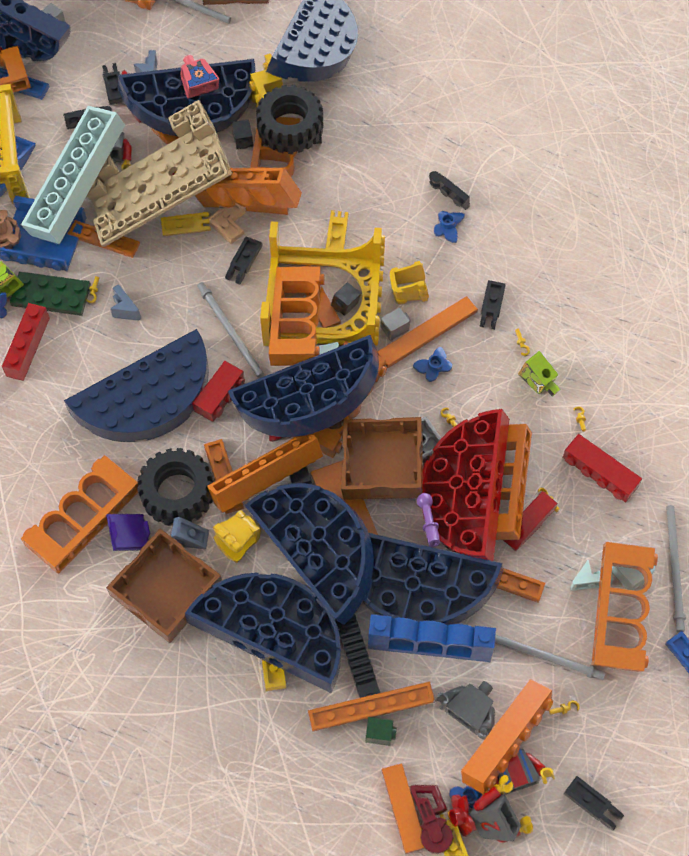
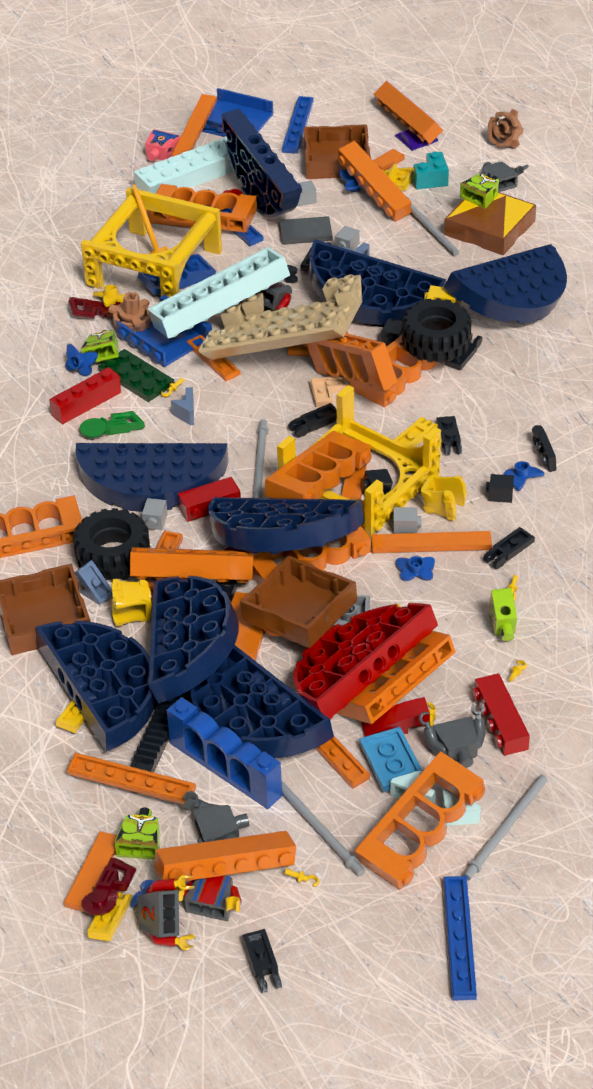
camera: 35 degrees right, 20 degrees down
(61, 369) = (117, 425): none -> green piece
(80, 58) = (306, 230): none -> dark grey tile
(128, 52) = (348, 238): none -> light grey brick
(128, 531) = (45, 555): dark purple piece -> none
(184, 224) = (287, 373): yellow hinge -> none
(184, 432) = (155, 513): none -> light grey brick
(198, 77) = (380, 268): coral torso -> none
(362, 215) = (449, 434): none -> black hinge
(380, 731) = (122, 801): dark green brick -> none
(417, 753) = (138, 836): none -> lime torso
(425, 501) = (292, 665): medium lavender pin -> none
(445, 249) = (500, 488): none -> black brick
(459, 815) = (131, 896): red animal -> none
(551, 559) = (389, 756): none -> dark azure plate
(588, 510) = (457, 738): none -> dark grey torso

